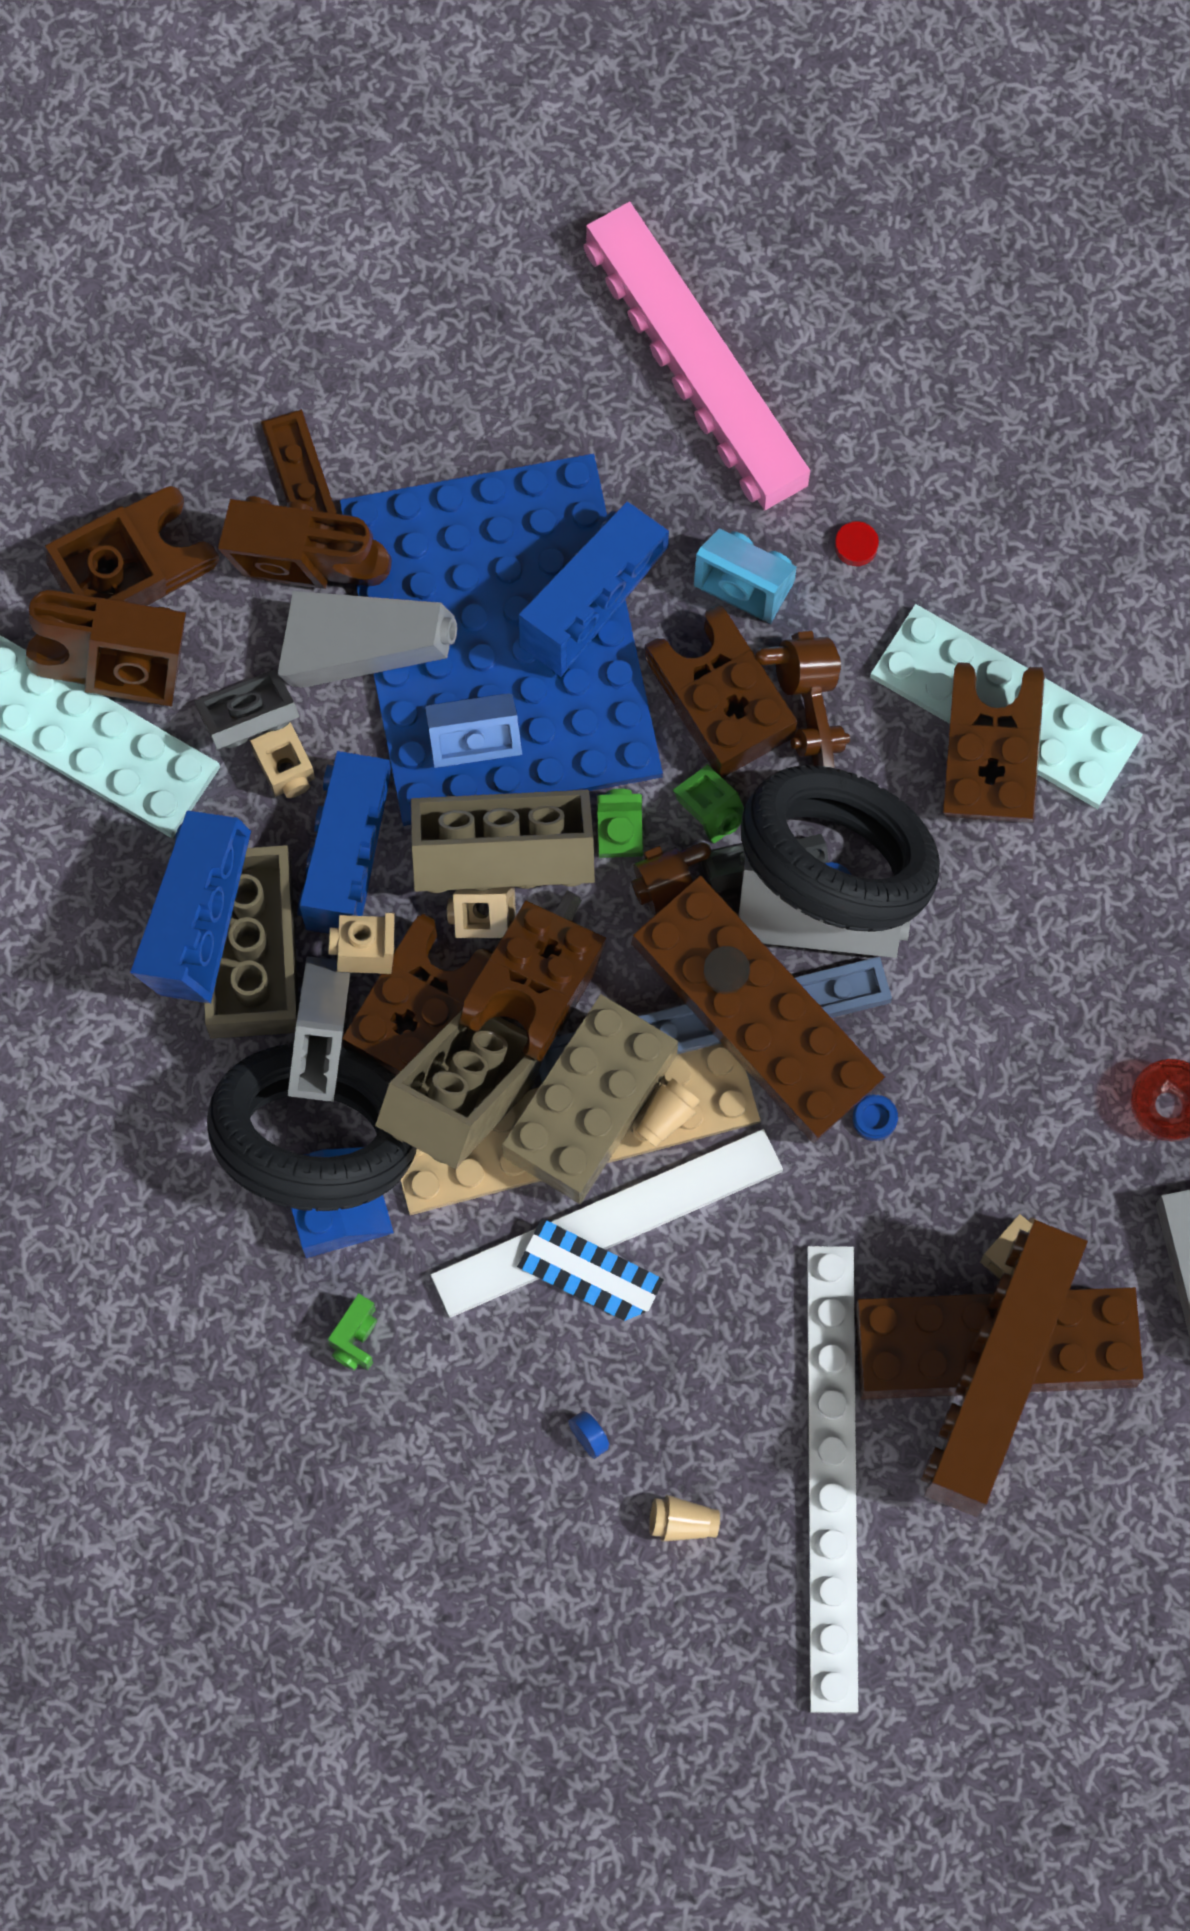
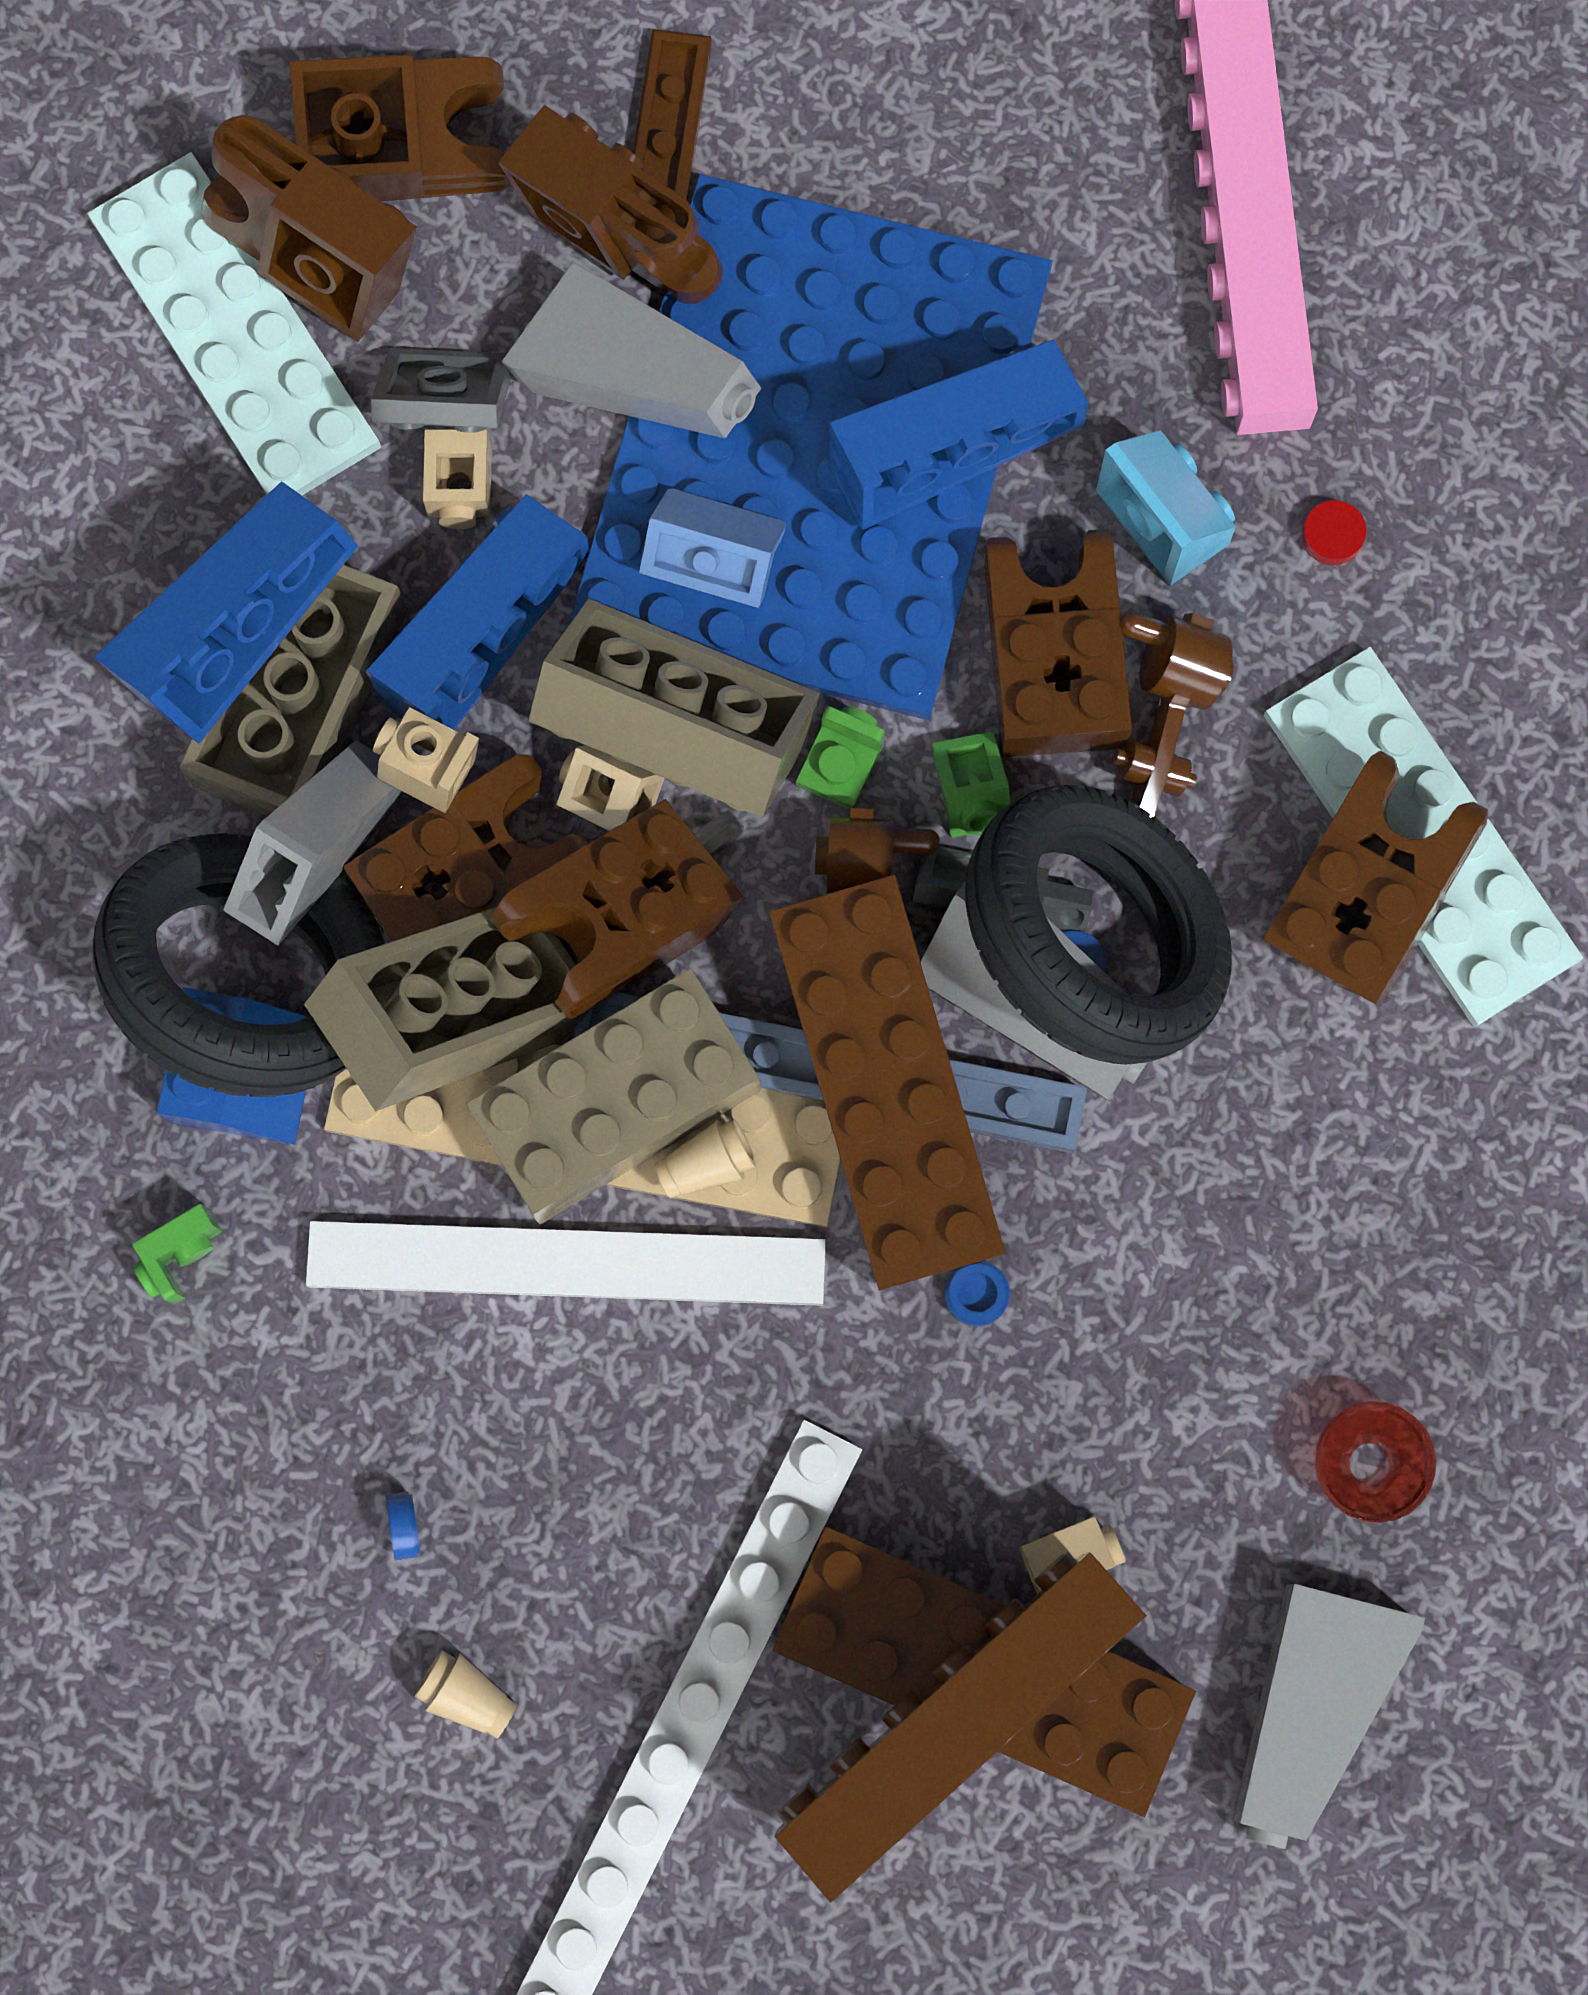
camera: 30 degrees right, 5 degrees up
(589, 1272) = (510, 1316): sticker -> none
(726, 970) = (863, 1016): clear smoke tile -> none

